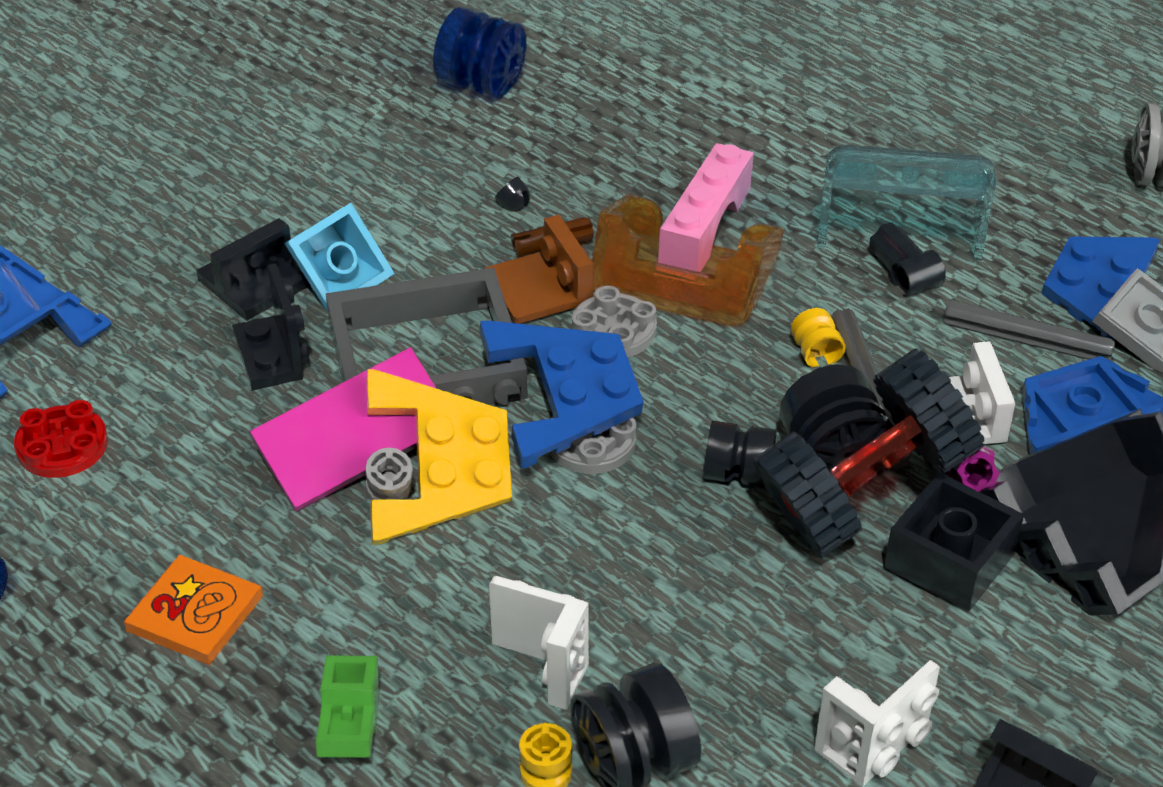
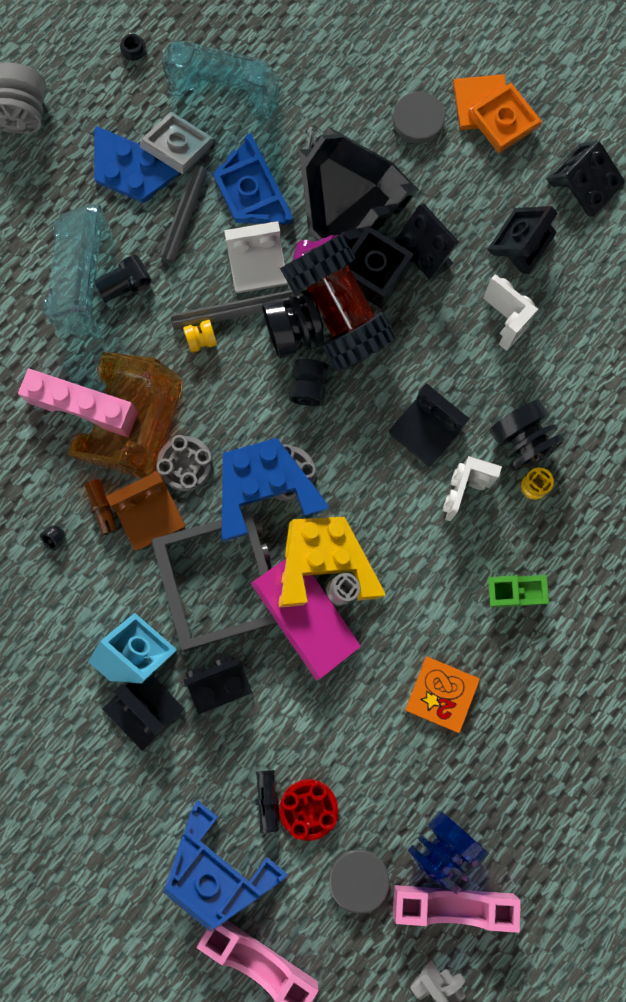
camera: 95 degrees left, 35 degrees up
(95, 391) = (267, 801): none -> black pin
(665, 612) = (429, 425): none -> black bracket
(1001, 613) = (428, 241): none -> black bracket

